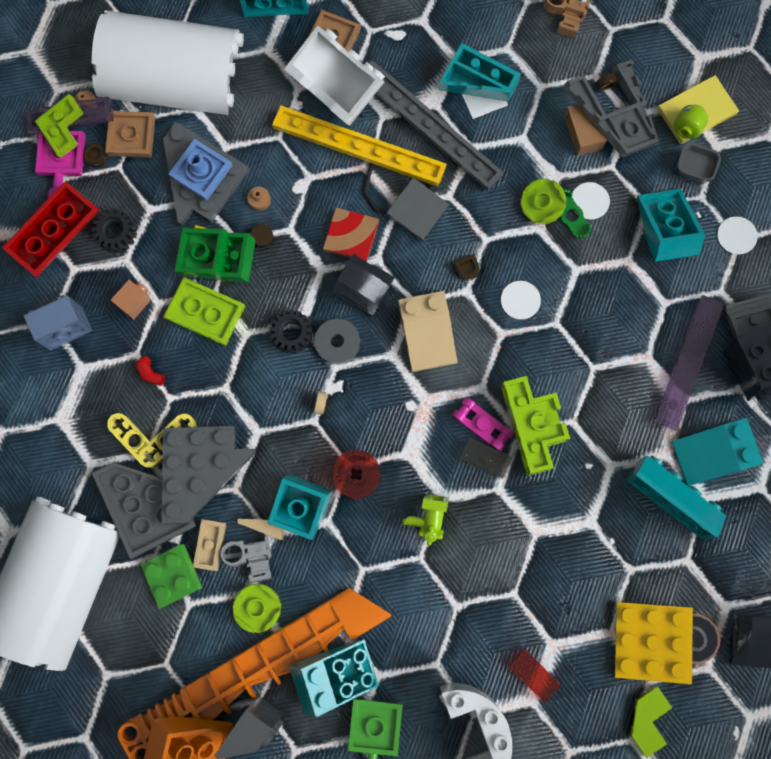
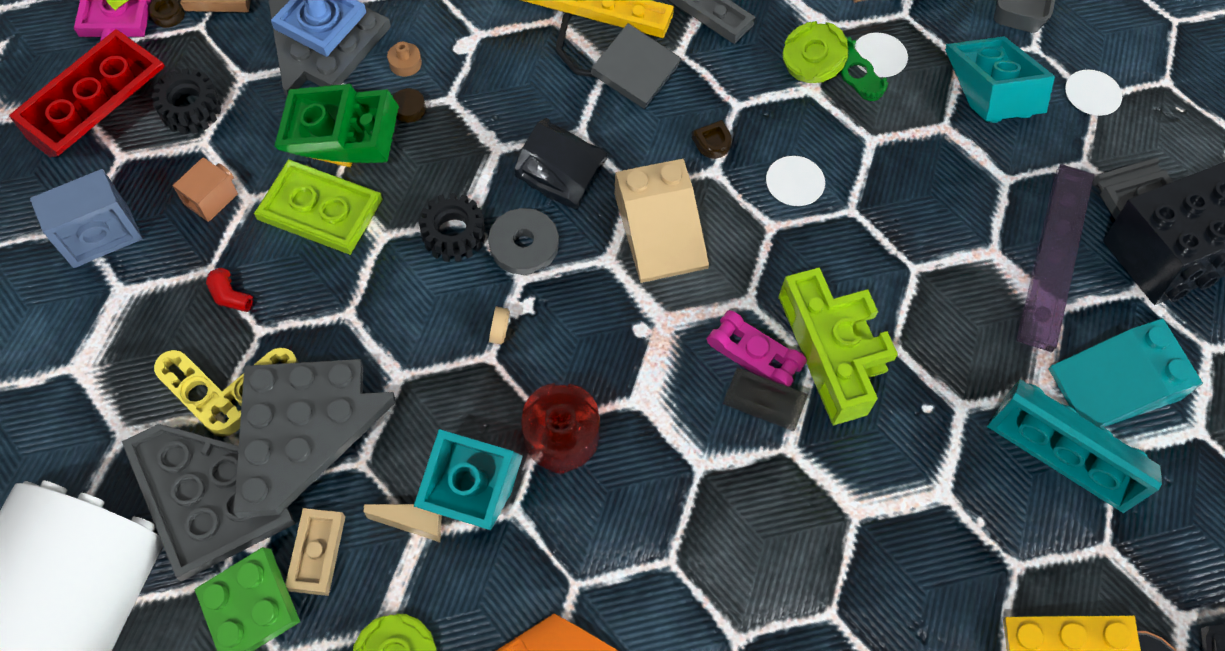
camera: 10 degrees left, 15 degrees down
(256, 557) = (394, 565): light grey piece -> none
(351, 234) = (539, 96): tile -> none
(433, 517) = (687, 498): lime piece -> none

